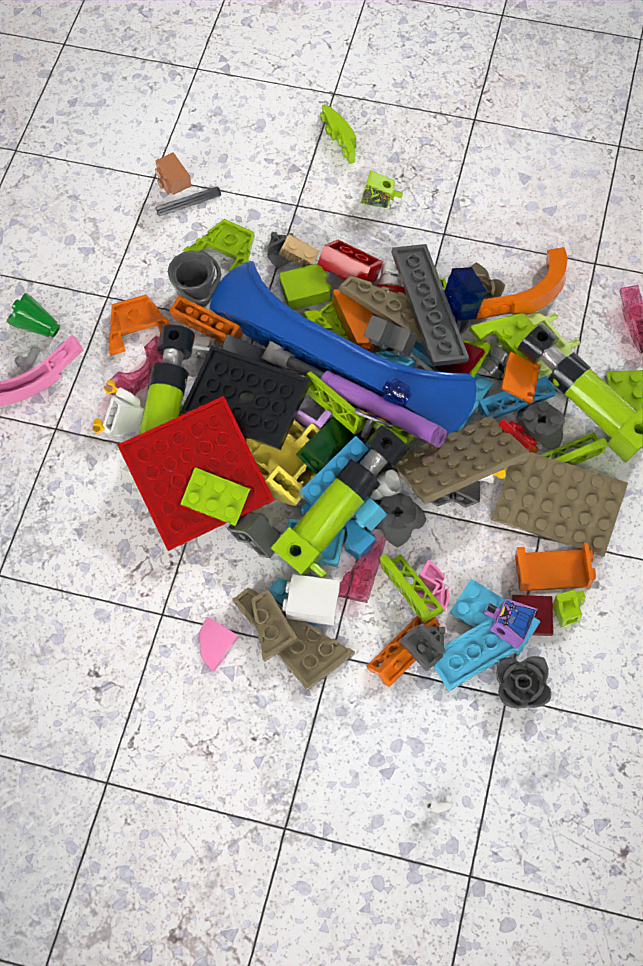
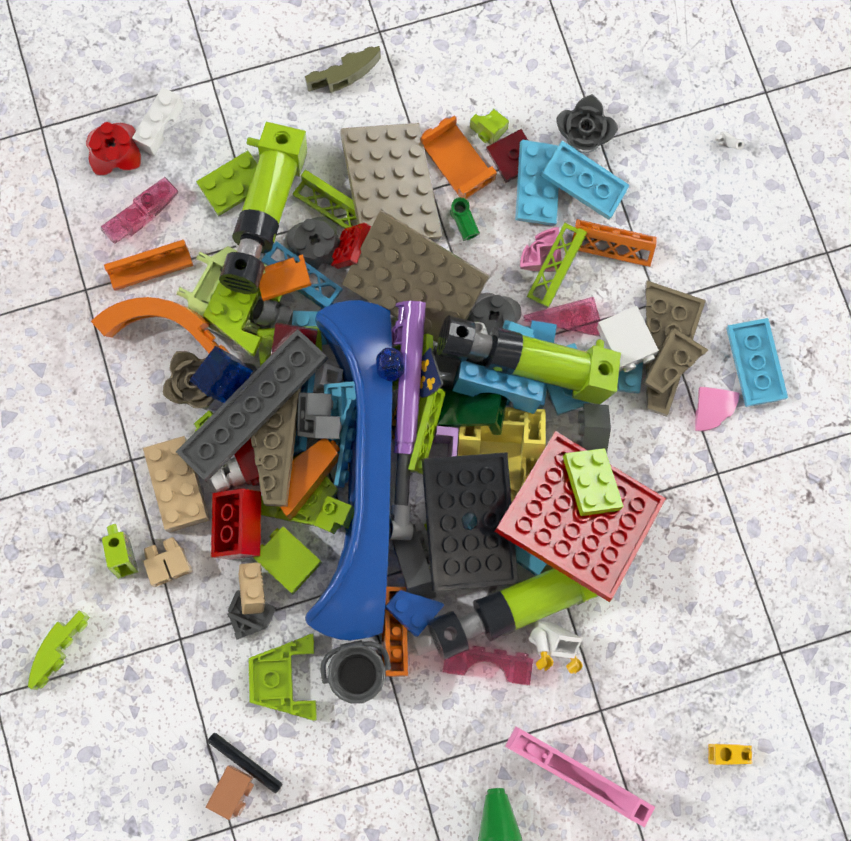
camera: 125 degrees left, 15 degrees up
(23, 362) = (546, 796): light grey arm -> none
(131, 317) = (427, 718): orange wing -> none
(210, 333) = (413, 610): none -> blue wing
(228, 698) = (756, 362): none -> medium azure plate
(351, 216) = (157, 563): none -> tan hips
(389, 235) = (175, 486): none -> tan brick
(425, 644) = (606, 220): dark grey slope -> none
(493, 541) = (464, 220): none -> green piece
(511, 621) = (546, 153): torso -> none
(588, 308) = (149, 265): none -> orange fence

